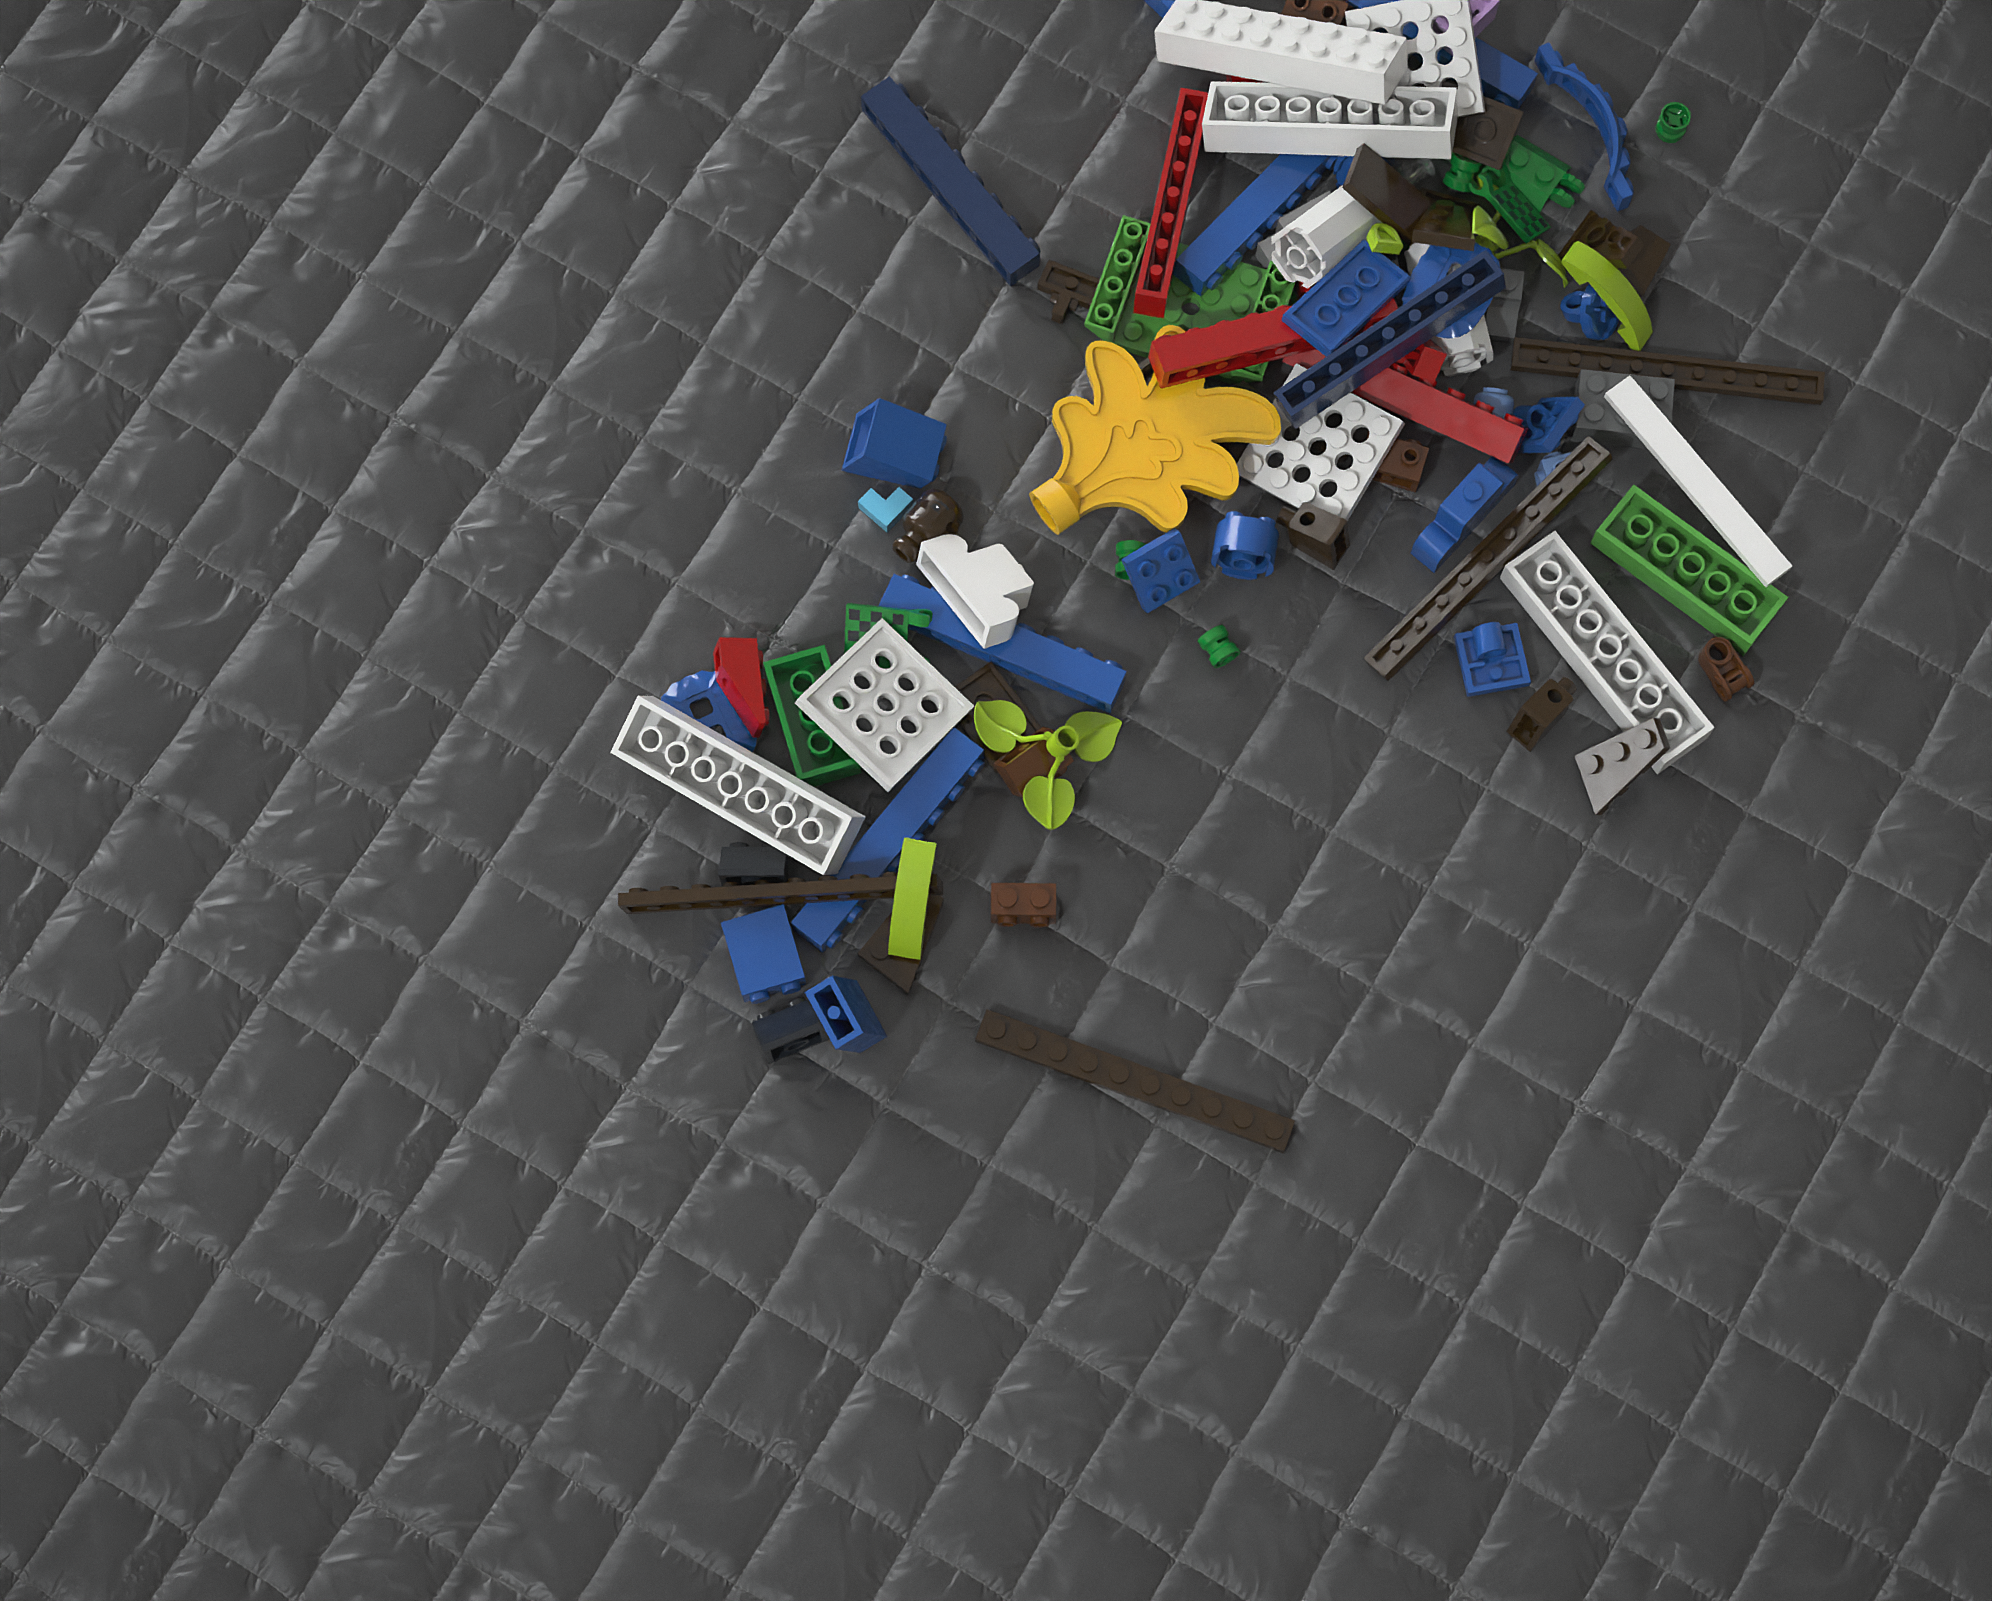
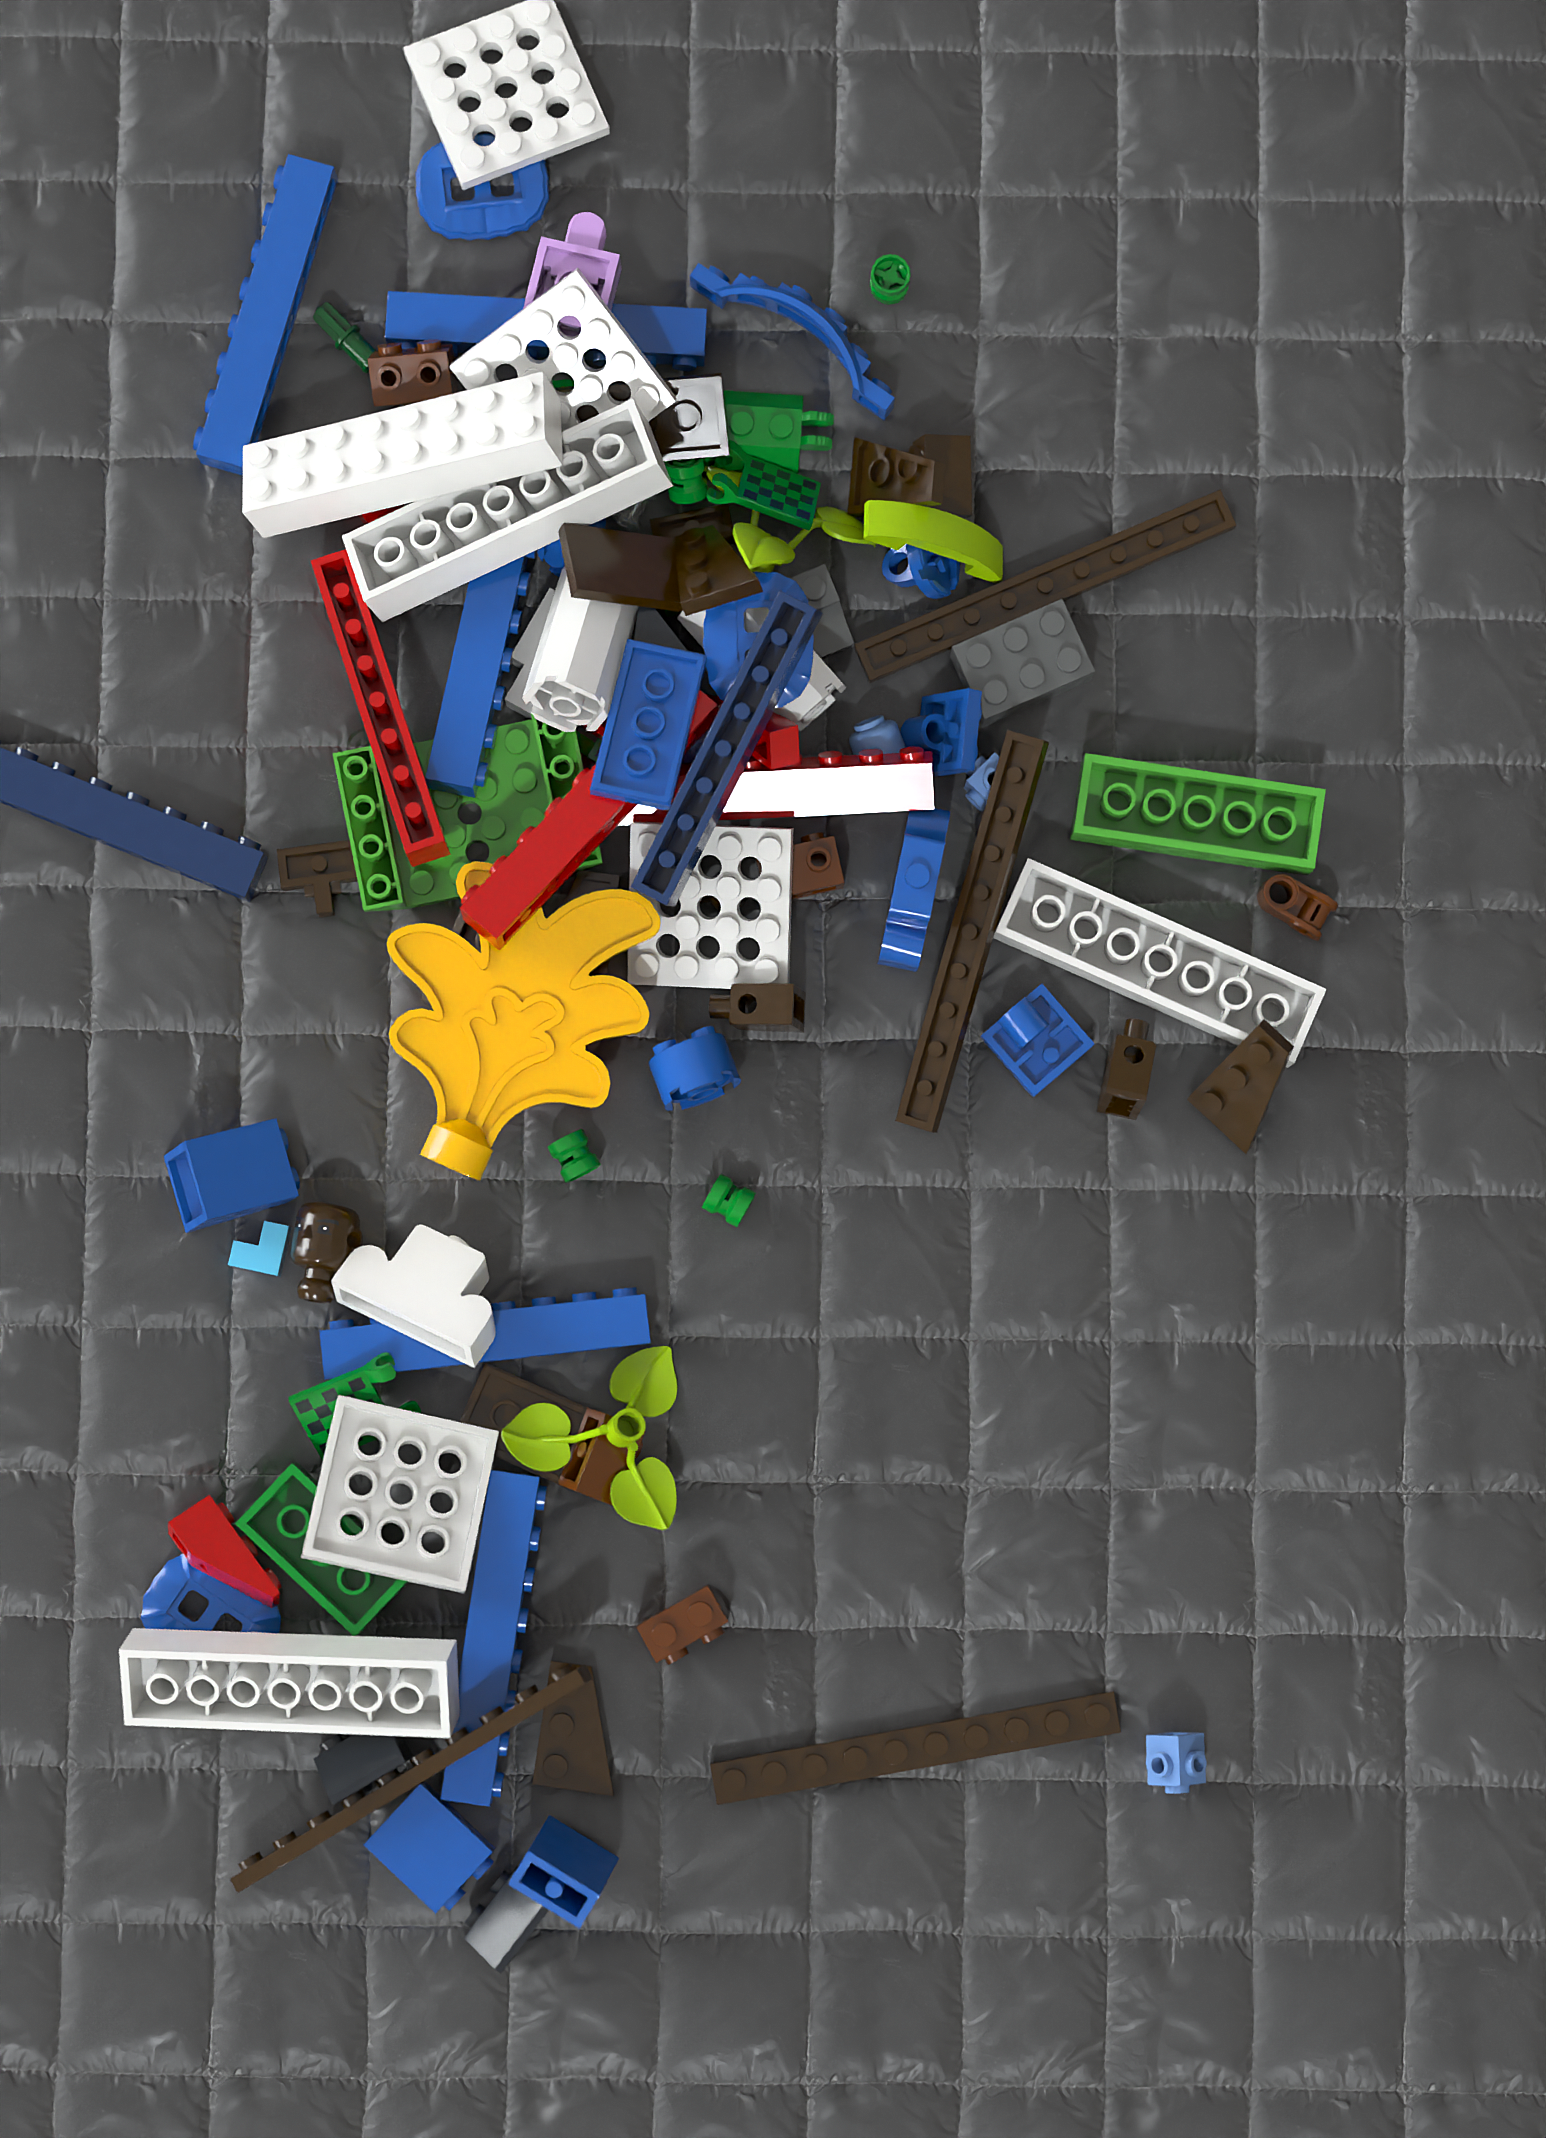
camera: 35 degrees left, 10 degrees up
(911, 898) = (562, 1705): lime slope -> none
(1160, 570) = (615, 1152): blue plate -> none
(1312, 1189) = (1176, 1760): none -> medium blue brick
(1384, 239) = (650, 626): lime tile -> none
(1698, 481) = (1154, 710): white tile -> none

